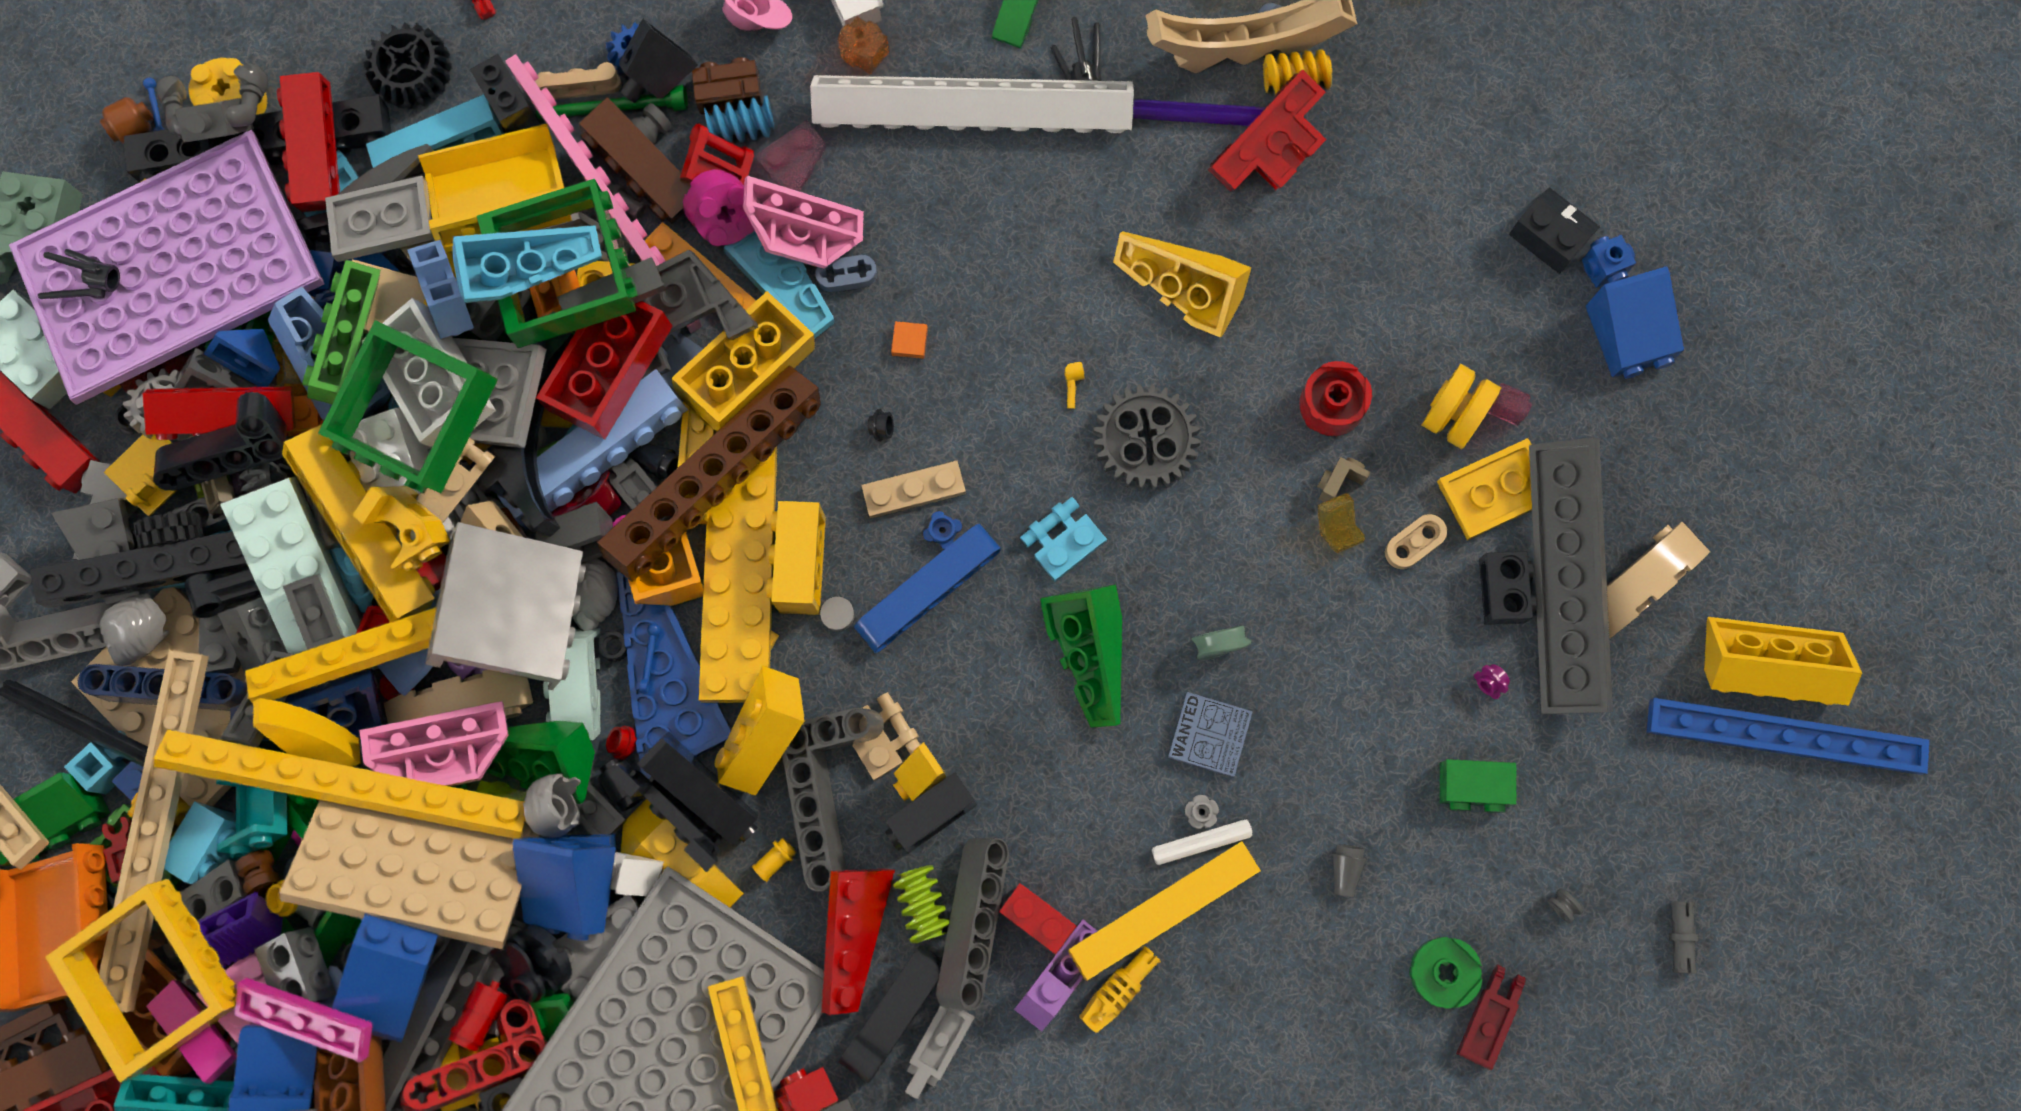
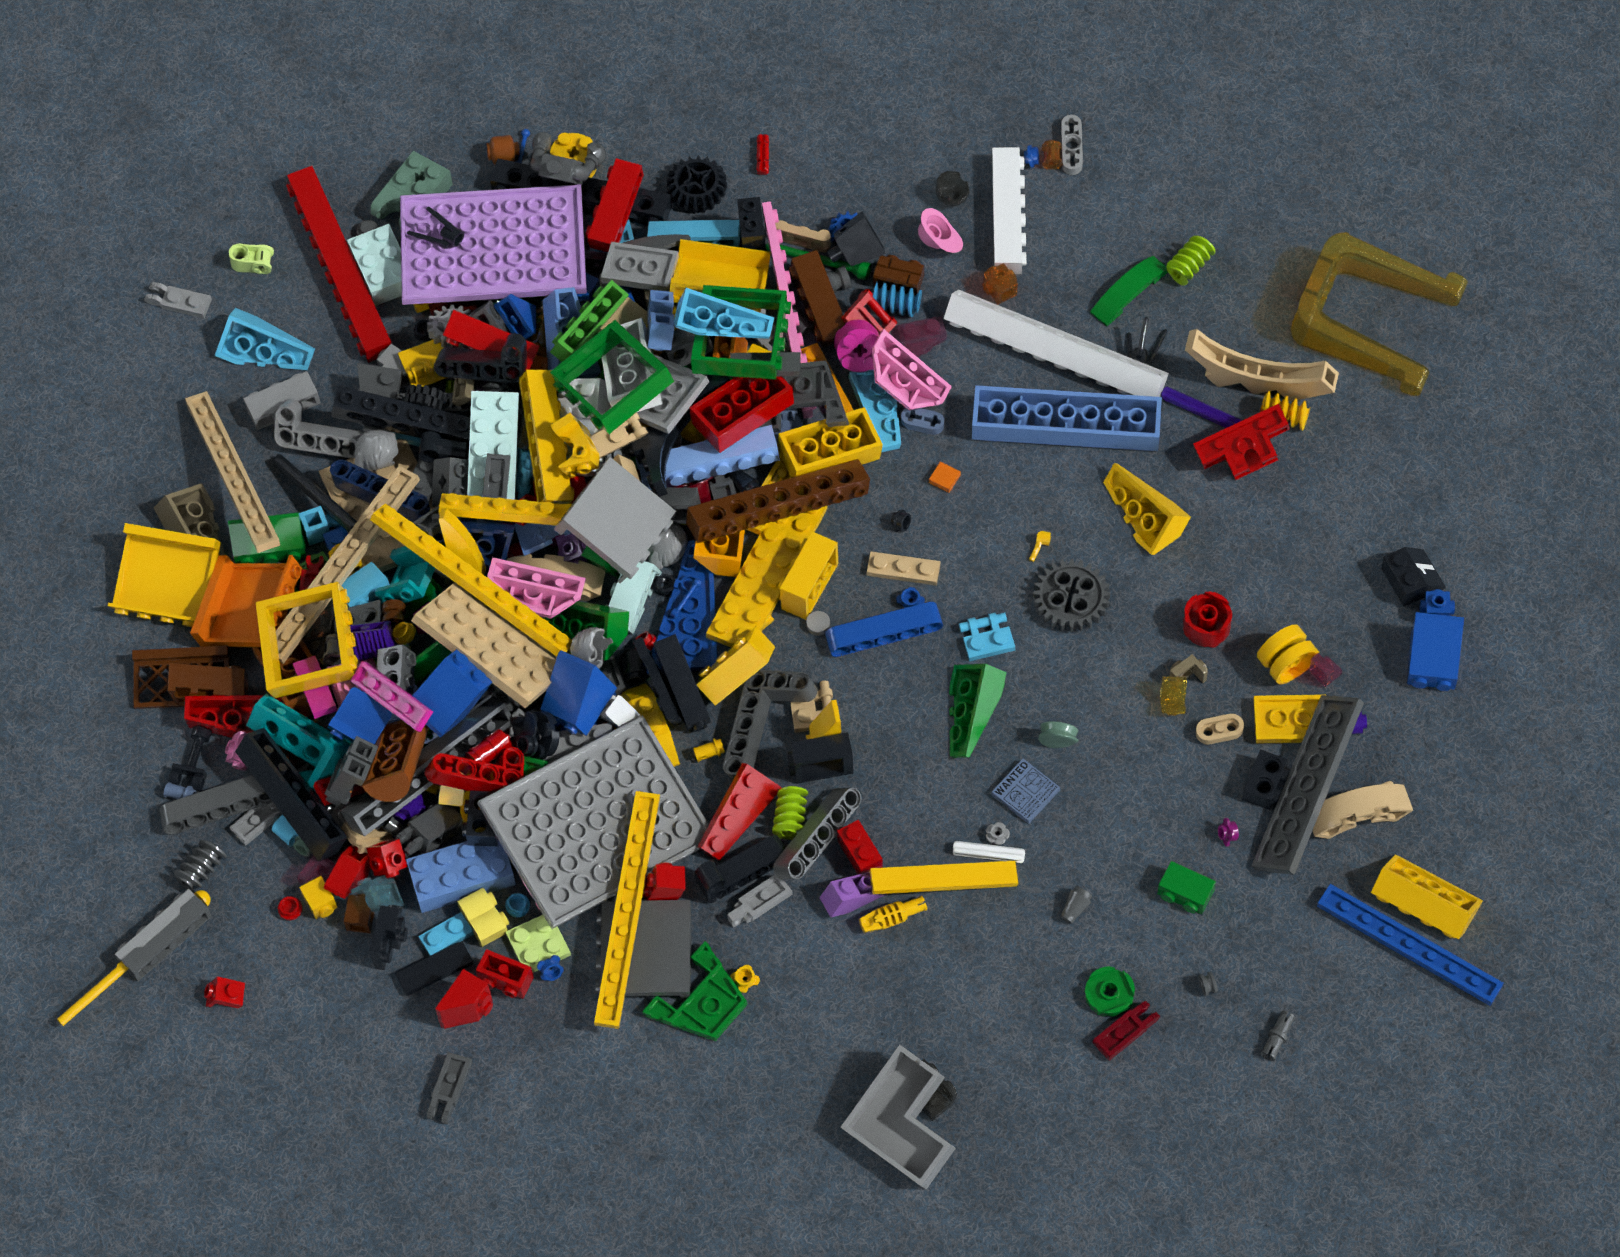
camera: 25 degrees right, 15 degrees down
(1032, 196) = (1066, 418): none -> medium blue brick

